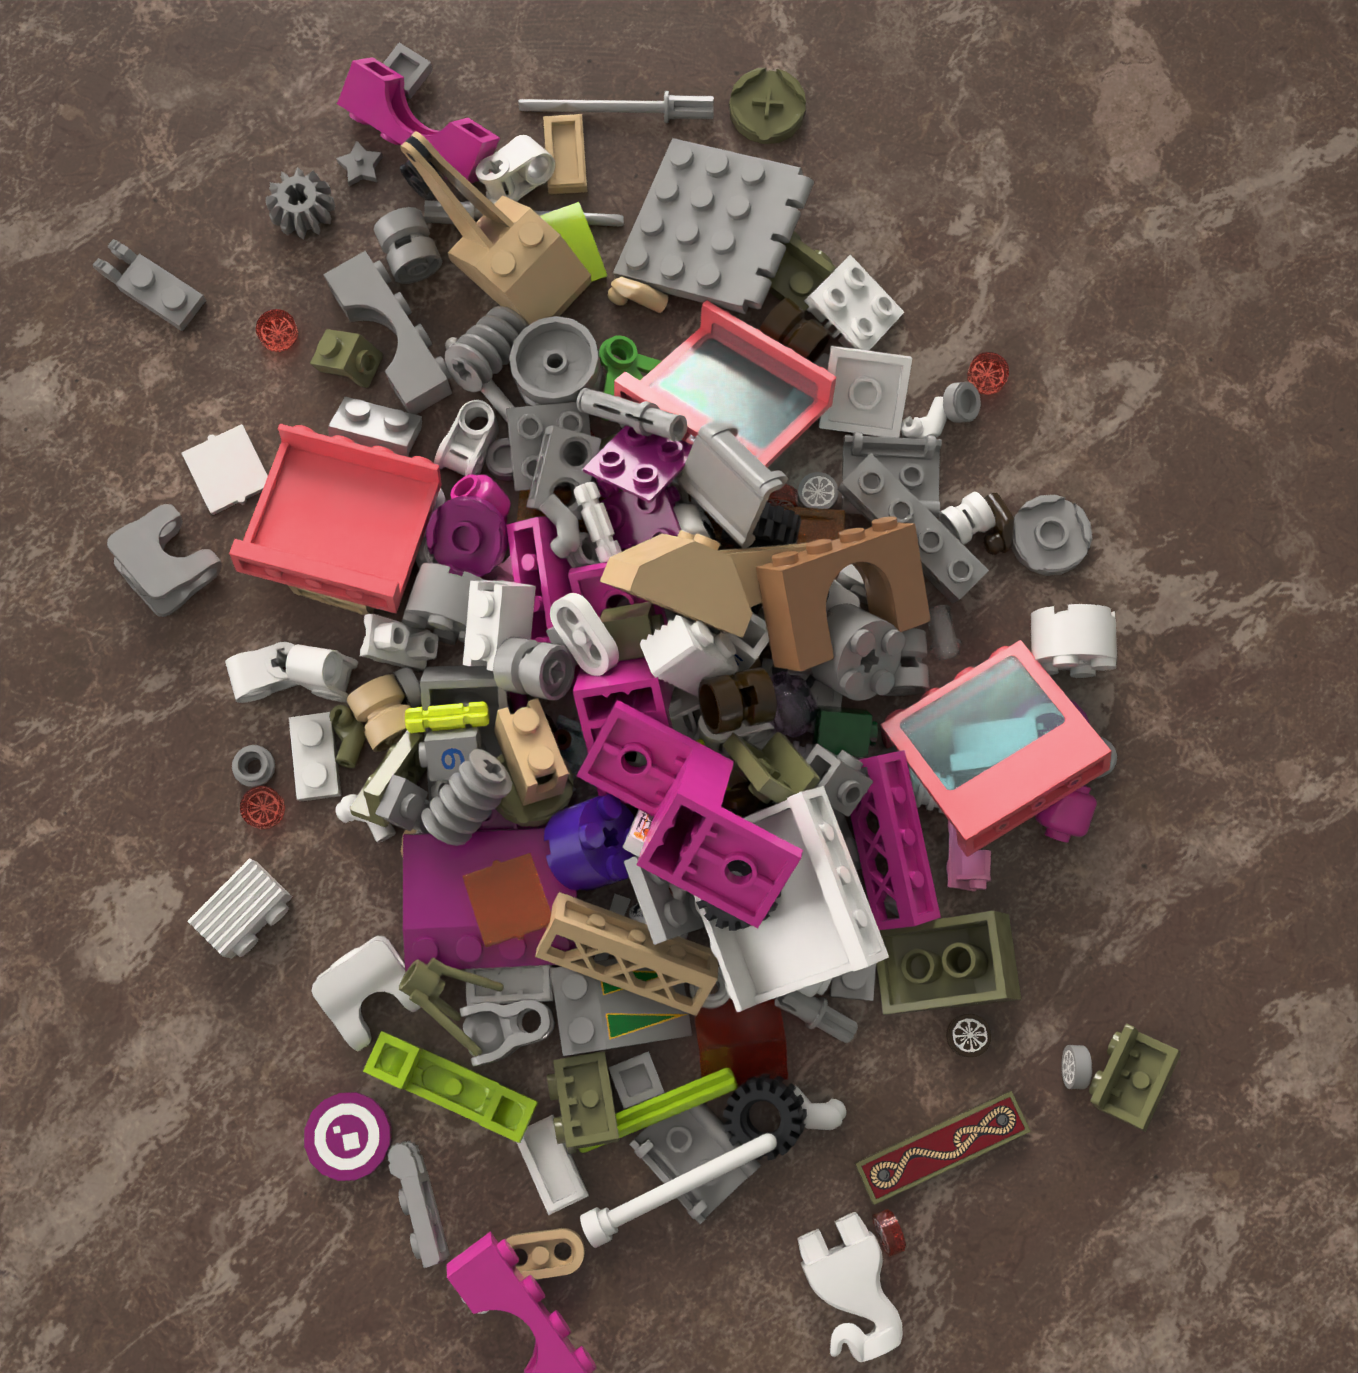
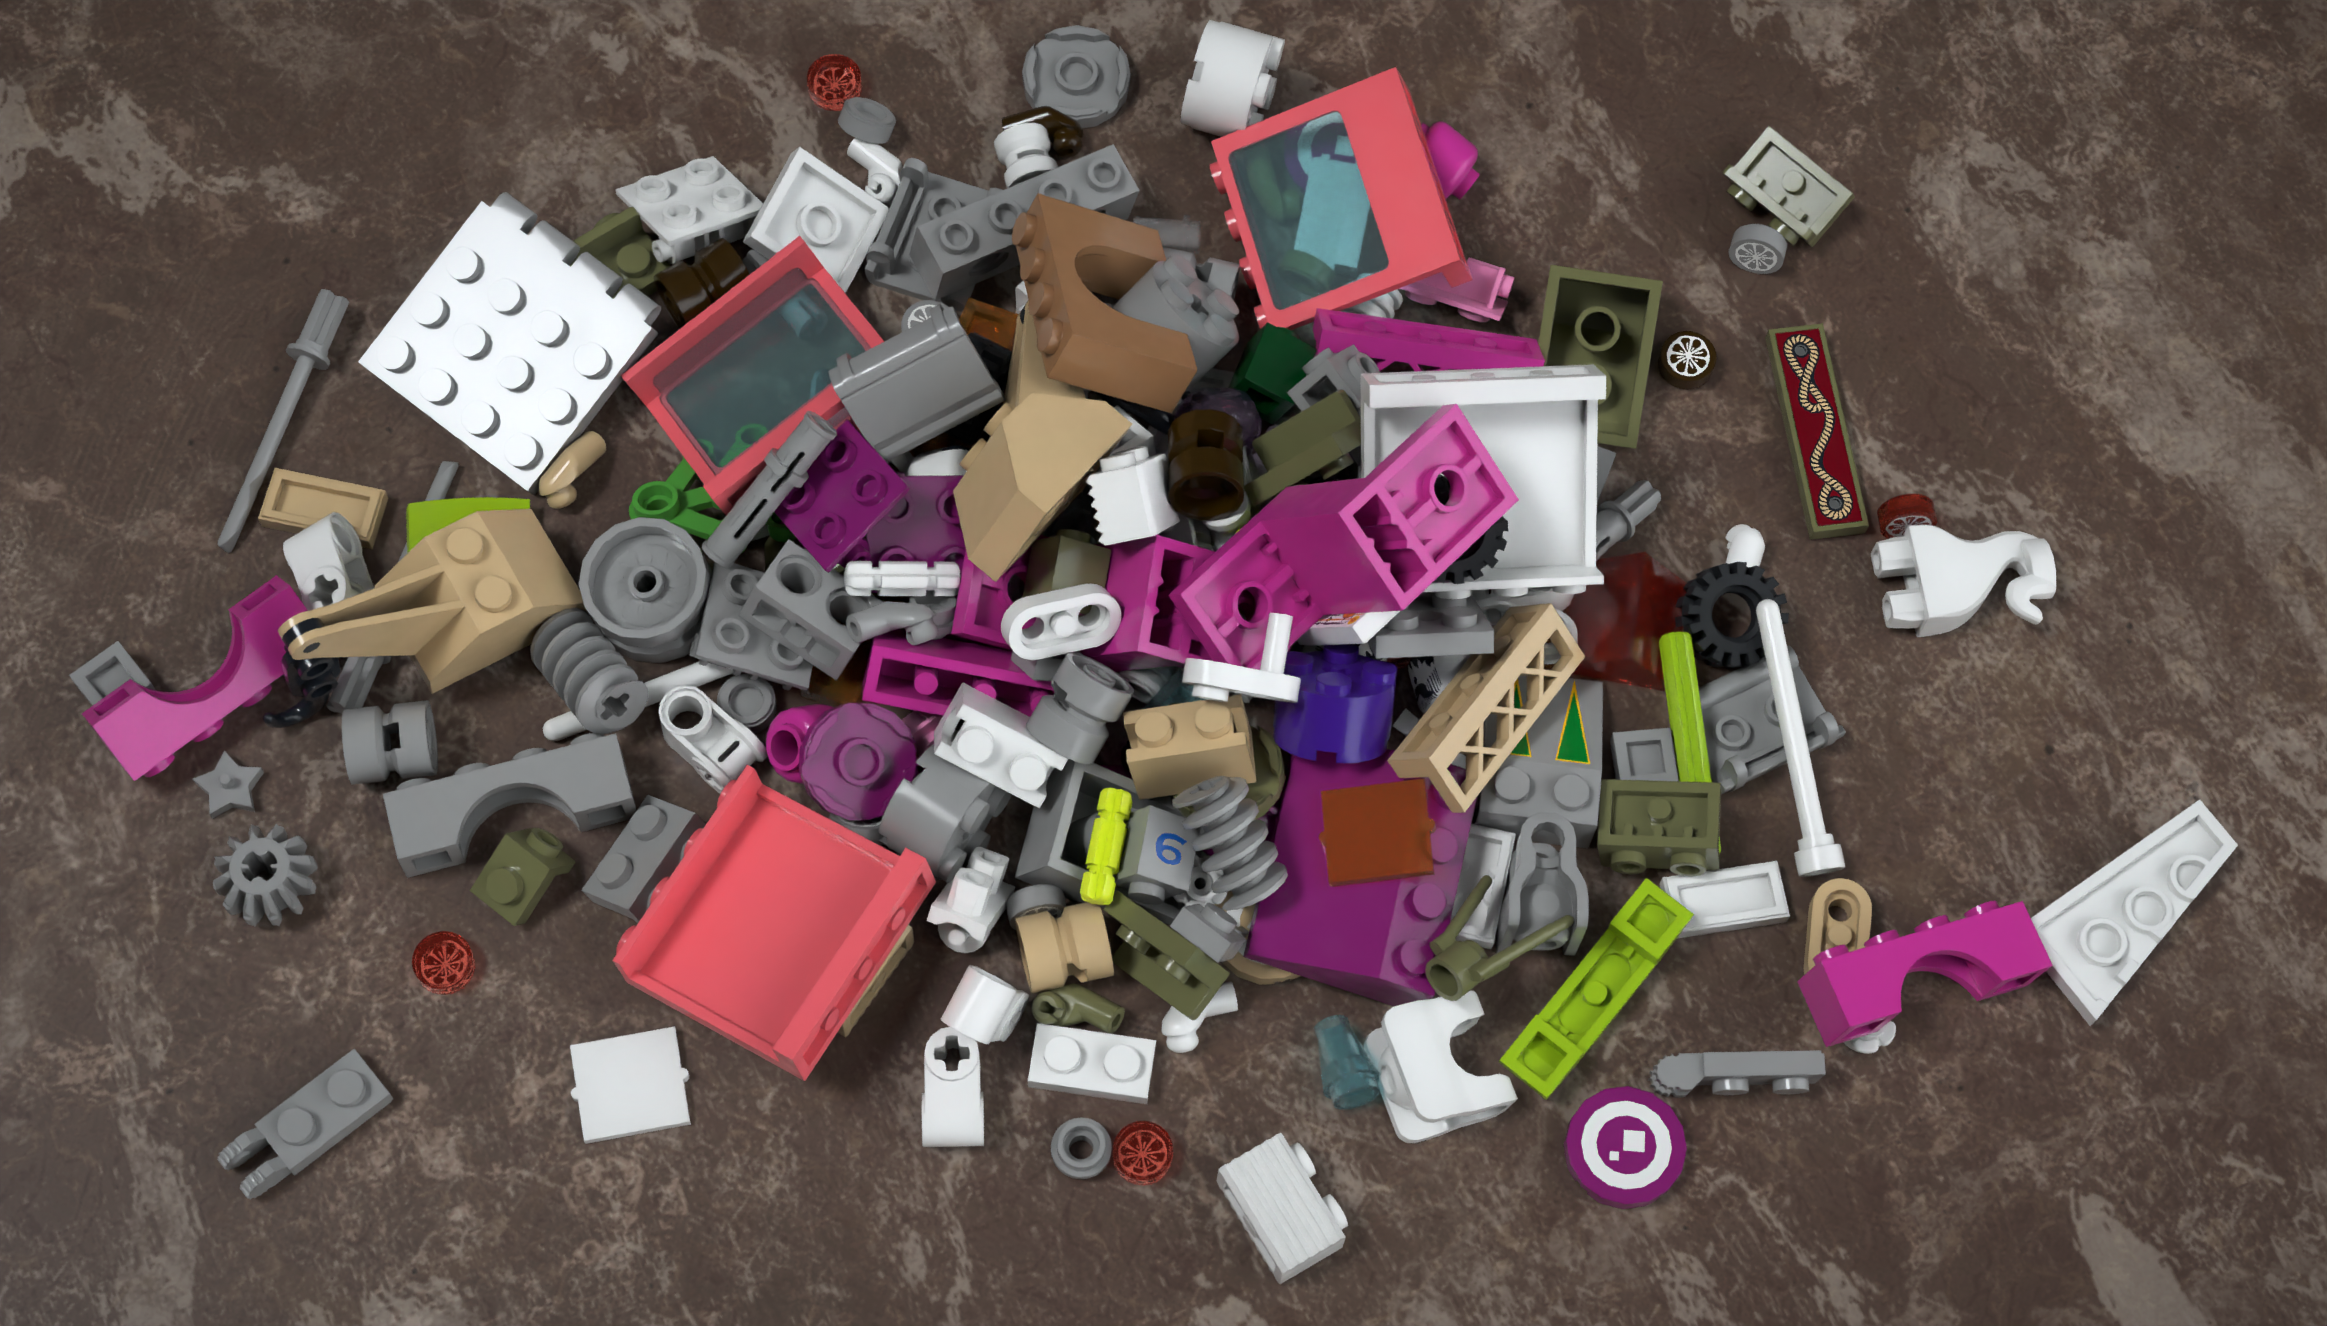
camera: 75 degrees left, 10 degrees down
(153, 574) = (752, 1216): light grey piece -> none
(354, 925) = (1345, 1066): none -> clear light blue cone
(577, 789) = (1216, 679): none -> white piece
(767, 105) = (353, 234): olive tile -> none

